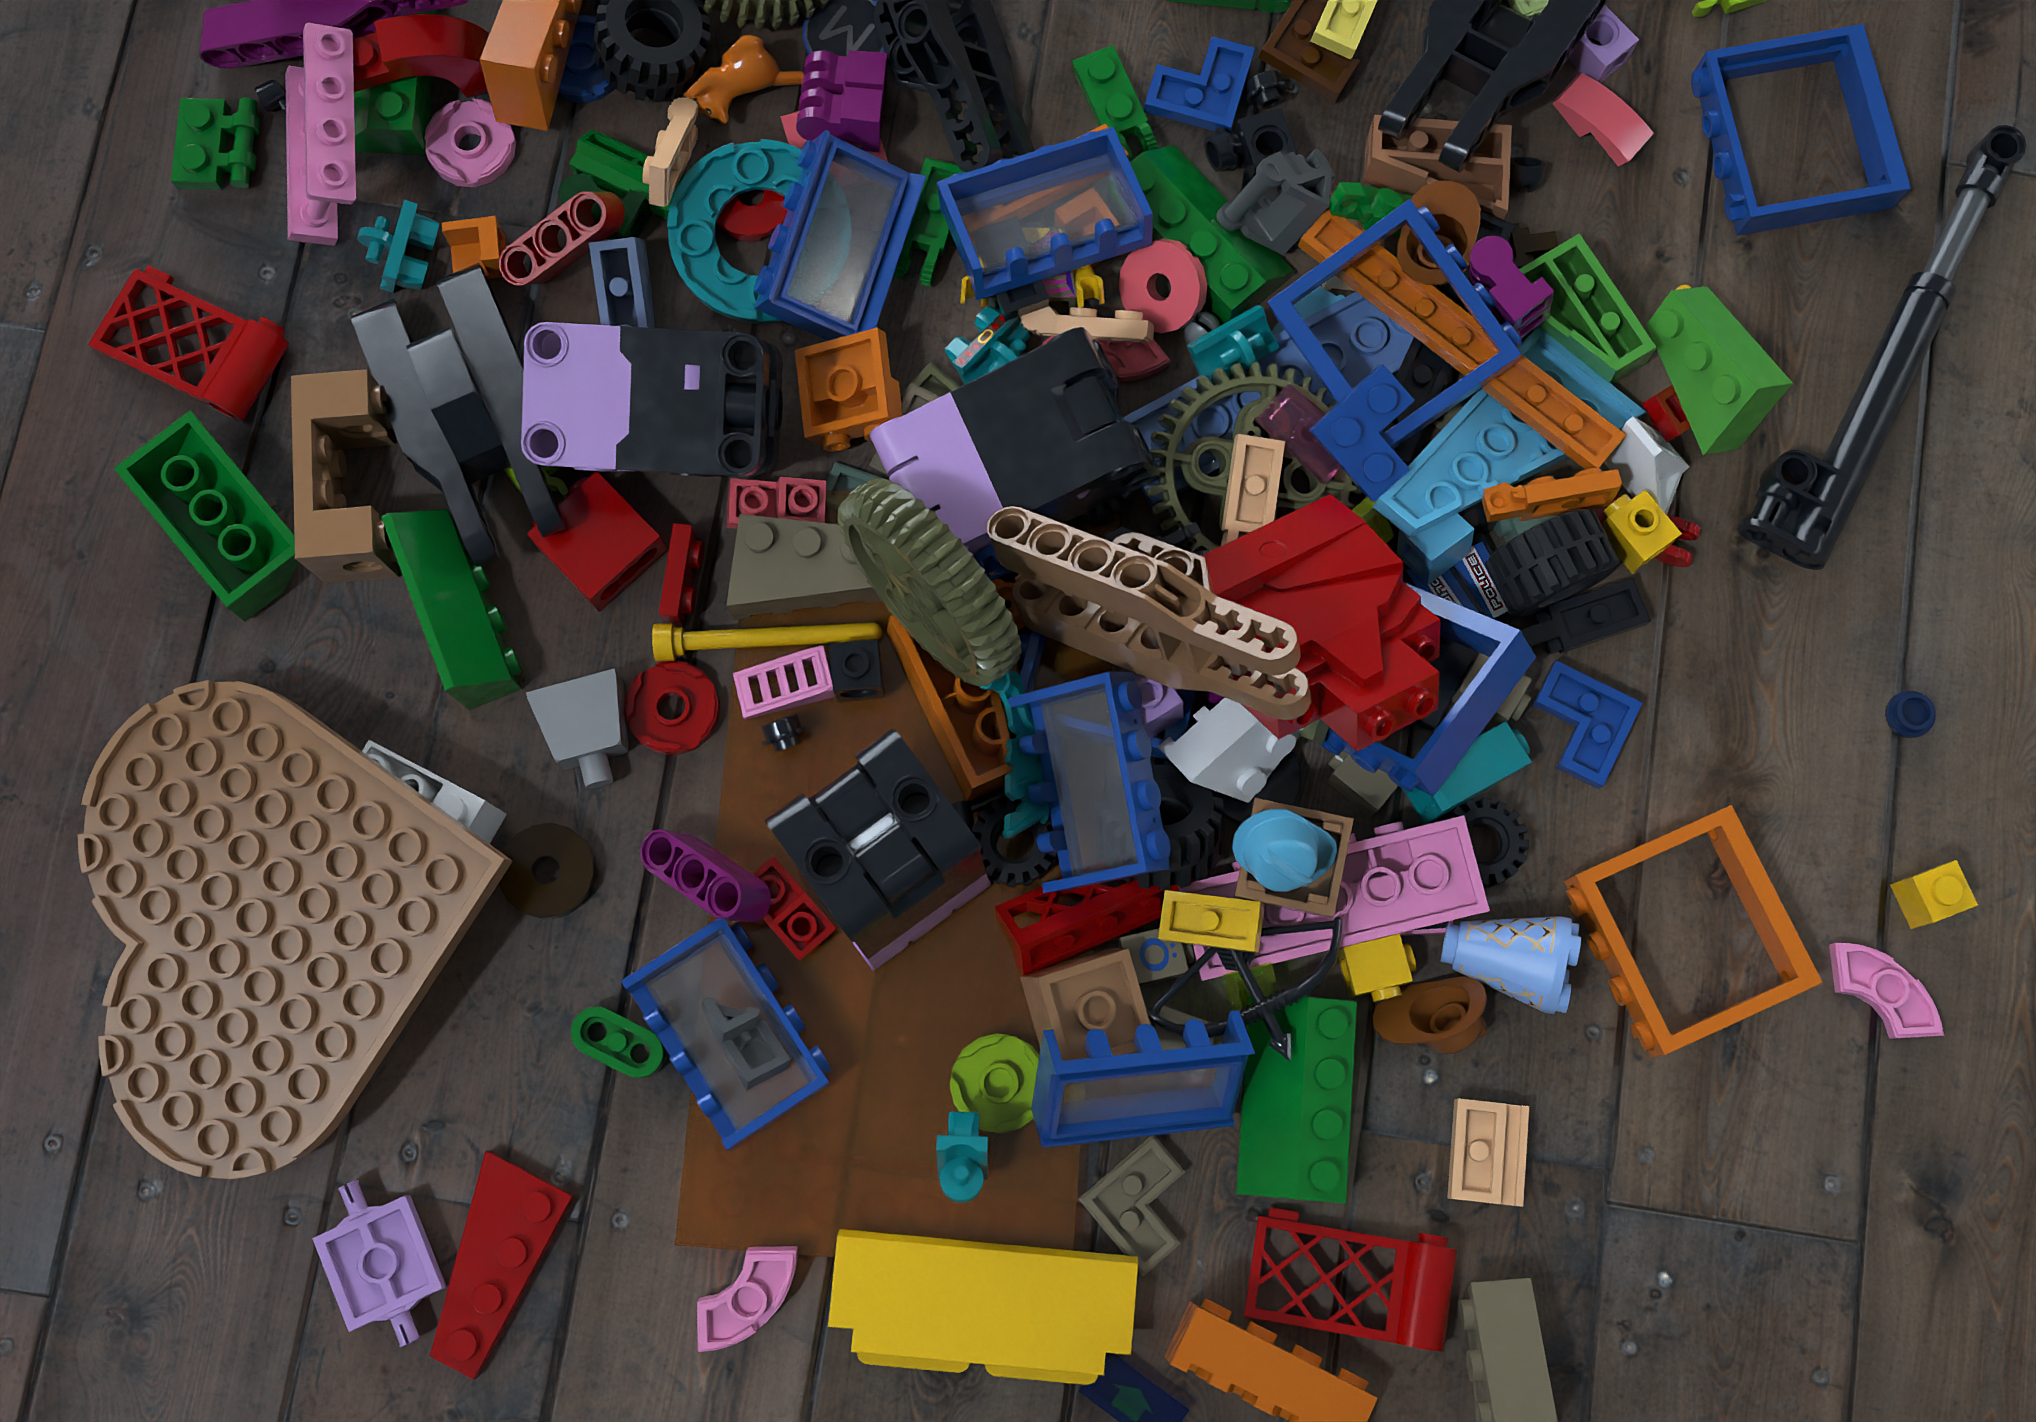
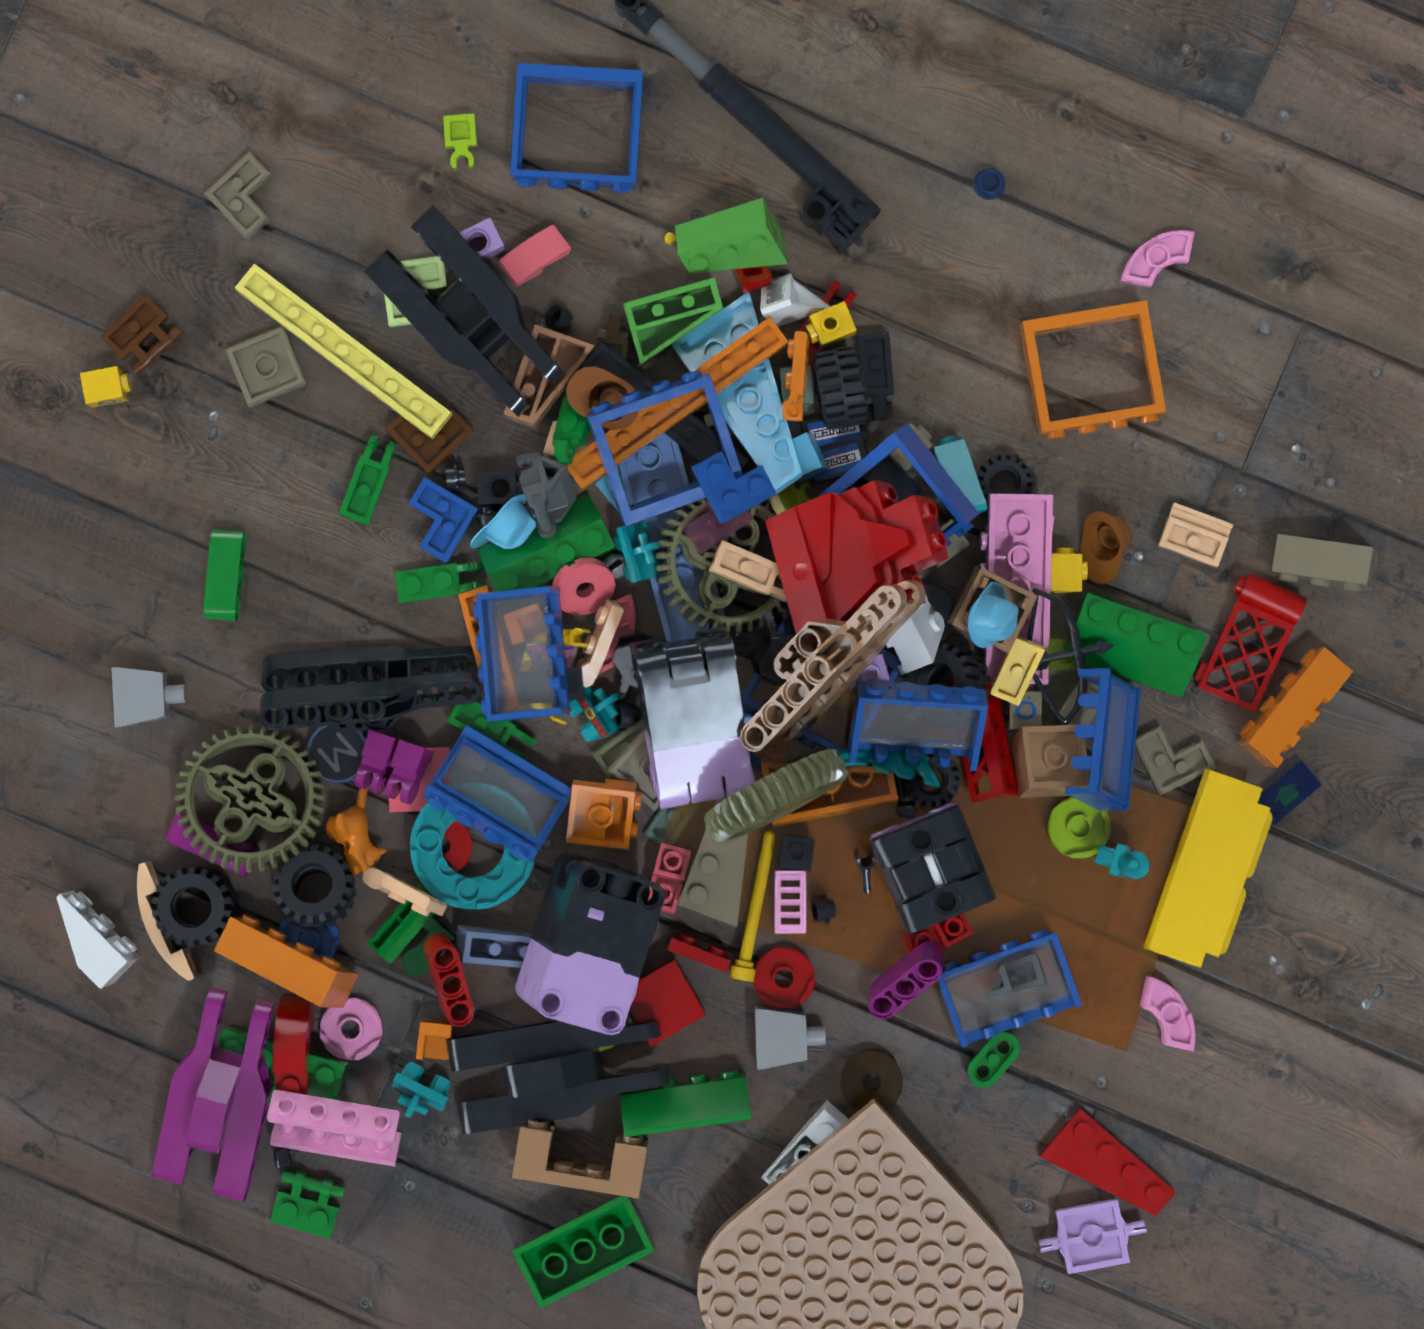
camera: 75 degrees left, 10 degrees up
(240, 362) = (480, 1217): red piece -> none
(1217, 160) = (509, 526): none -> medium azure piece
(1514, 296) = (667, 366): magenta legs -> none
(1517, 957) = (1083, 484): light blue cone -> none
(1599, 716) = (943, 383): blue plate -> none
(1933, 894) = (1108, 210): yellow brick -> none

